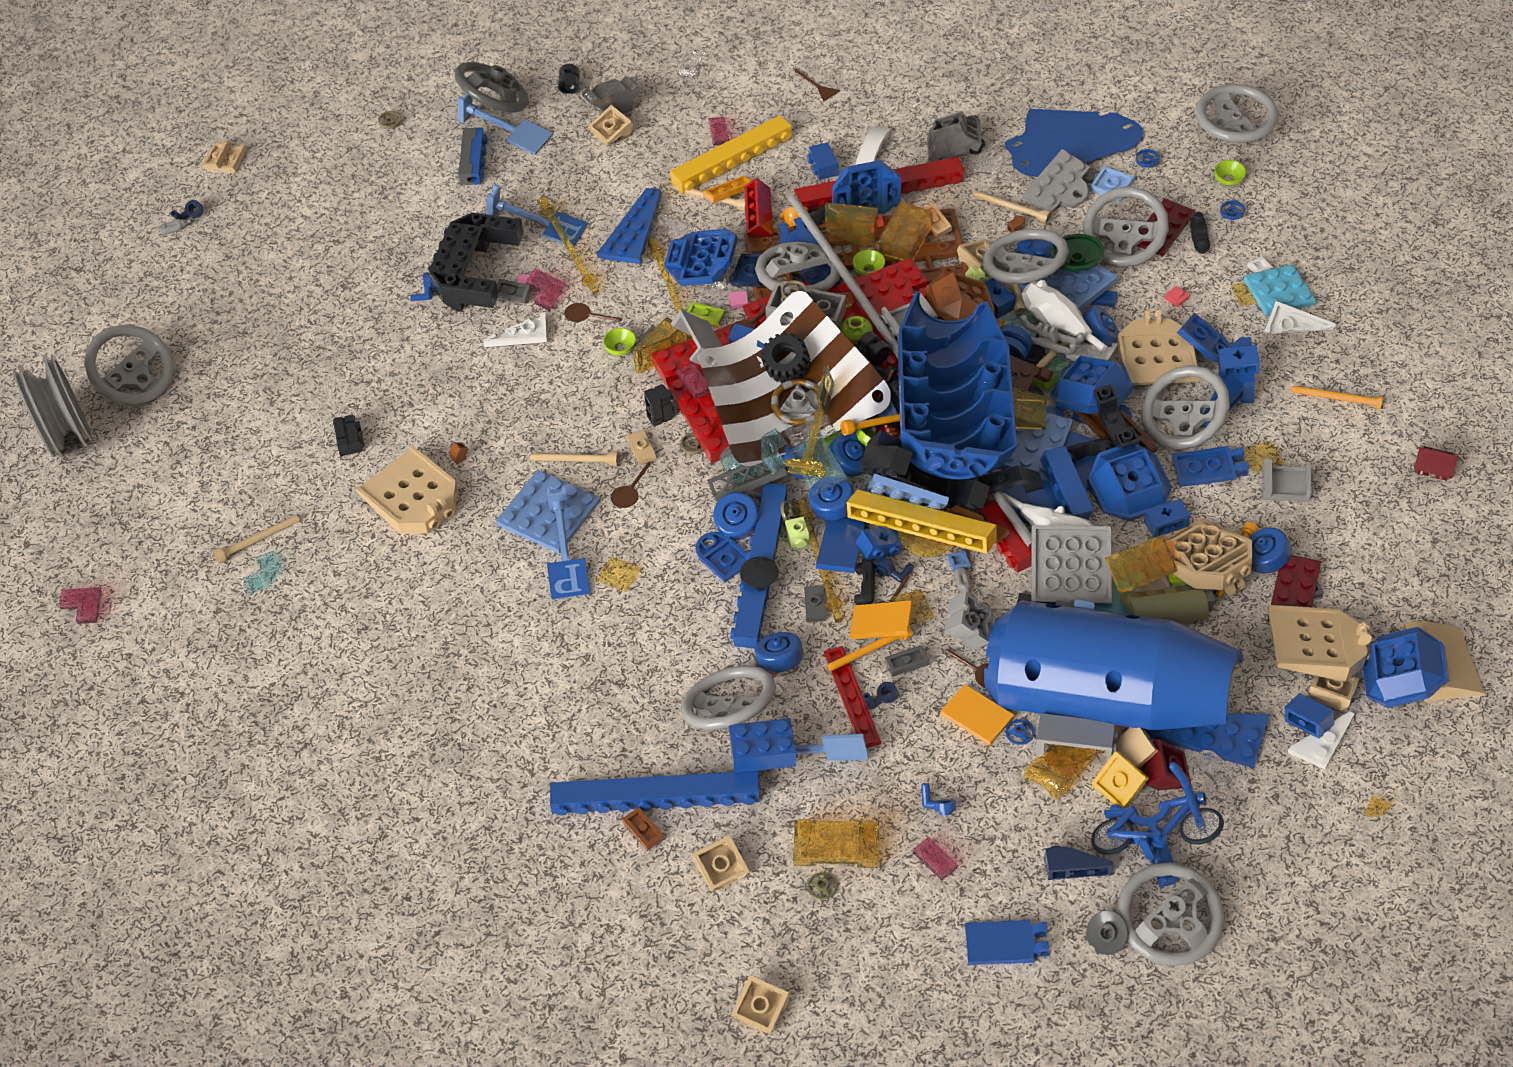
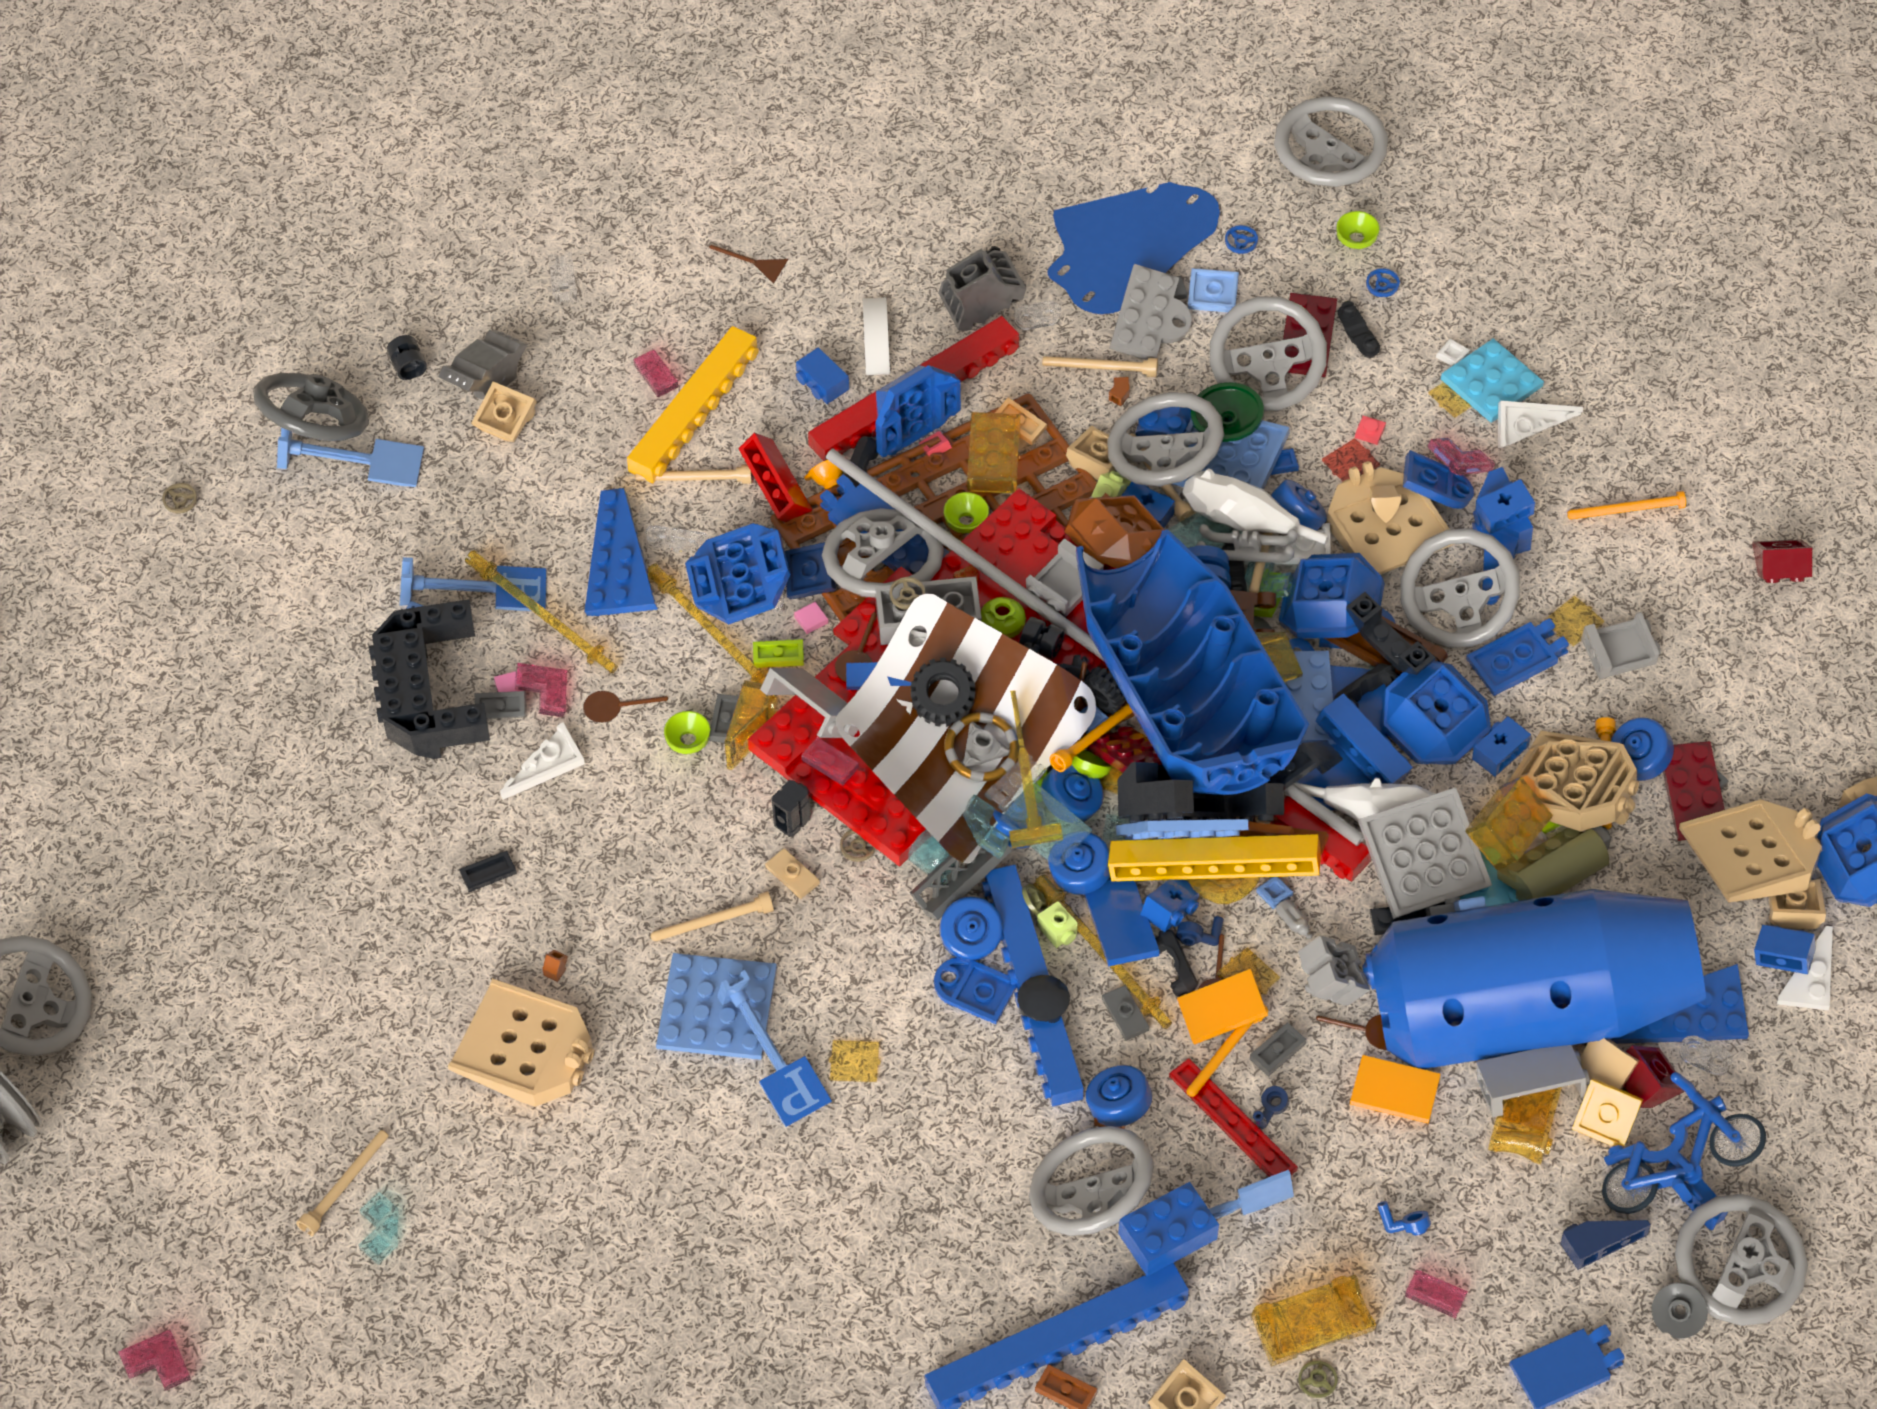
camera: 25 degrees left, 5 degrees up
(347, 435) = (389, 992): black brick -> none
(428, 290) = (376, 732): blue plate -> none
(450, 385) = (487, 871): none -> black tile
(472, 156) = (332, 519): piece -> none
(626, 495) = (806, 949): reddish brown piece -> none
(726, 189) = (715, 458): light orange tile -> none
(852, 223) = (919, 462): clear yellow slope -> none
(1020, 735) = (1449, 1095): blue piece -> none
(1152, 306) = (1348, 456): none -> clear red piece
(1158, 338) = (1385, 501): none -> tan tile
(1226, 329) = (1460, 461): none -> clear pink plate

